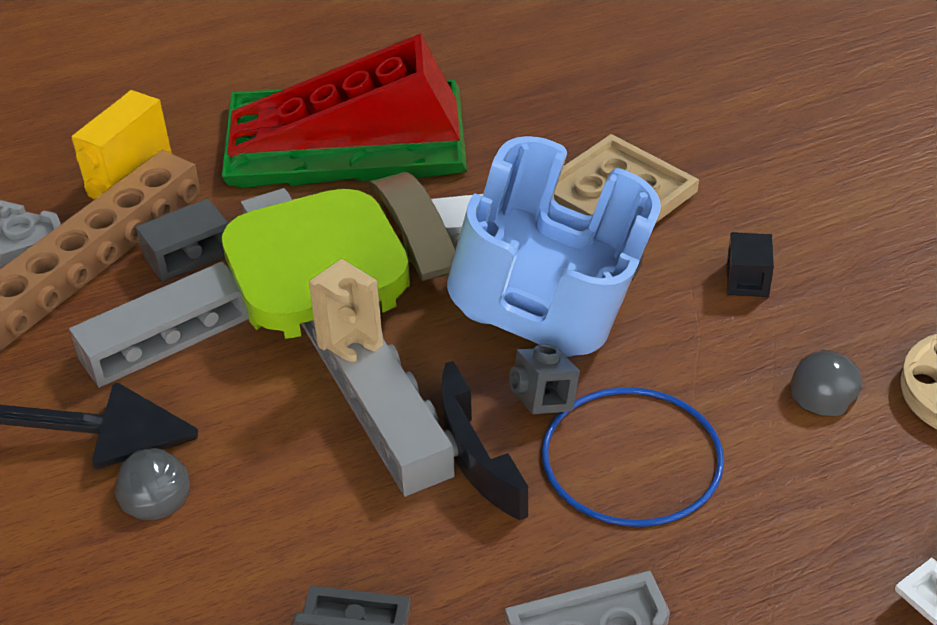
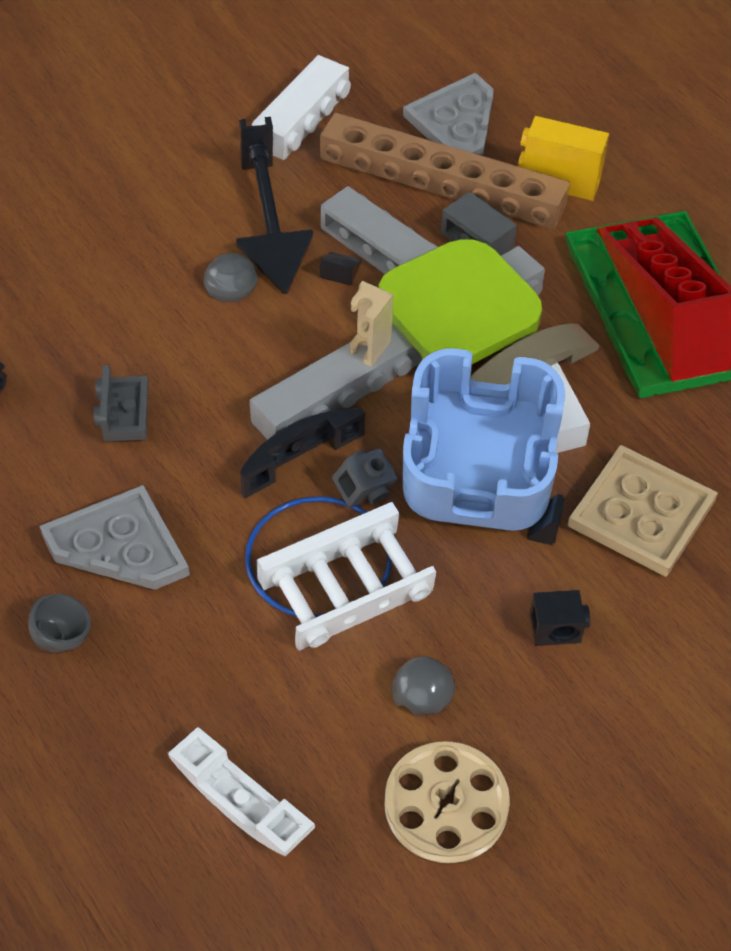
camera: 75 degrees right, 10 degrees up
(184, 372) = (339, 268): none -> black slope
(652, 445) = (346, 541): none -> white fence

